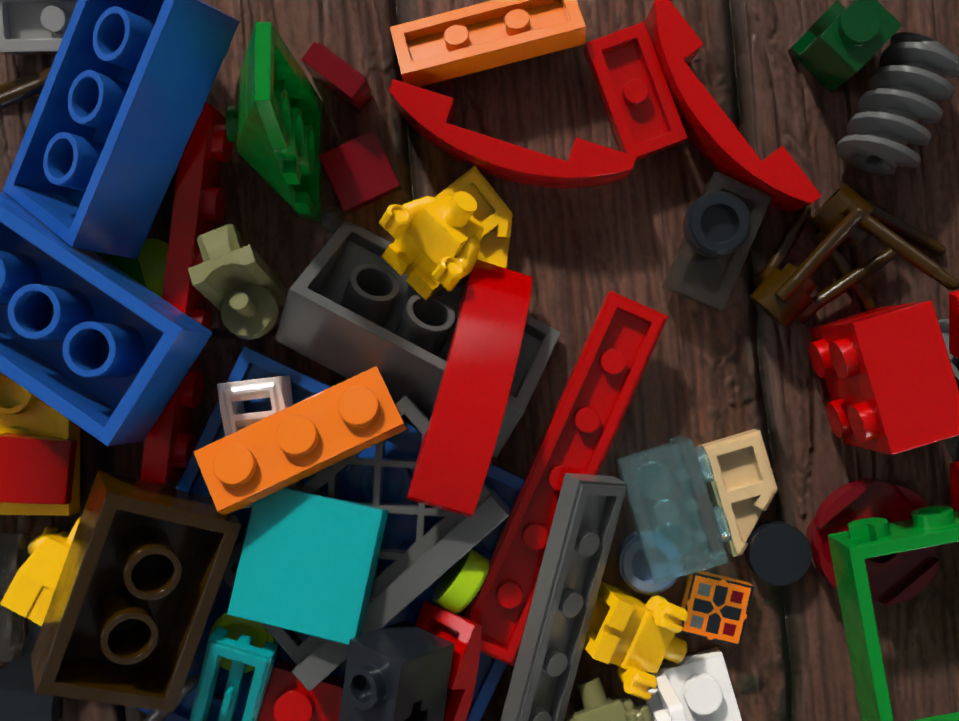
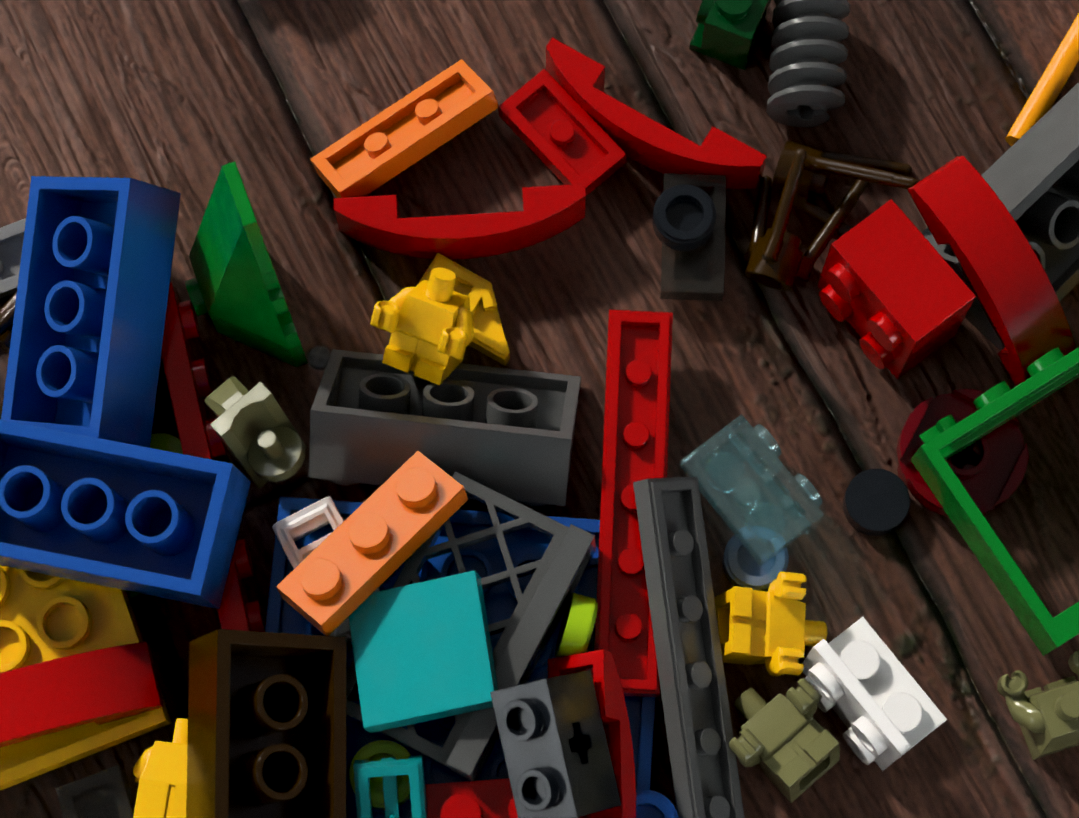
camera: 20 degrees left, 15 degrees down
(337, 76) = (282, 220): dark red tile -> none
(359, 172) = (330, 300): dark red tile -> none
(472, 390) = (516, 440): red slope -> none
(716, 607) = (838, 577): tile -> none
(741, 483) = (814, 449): tan tile -> none

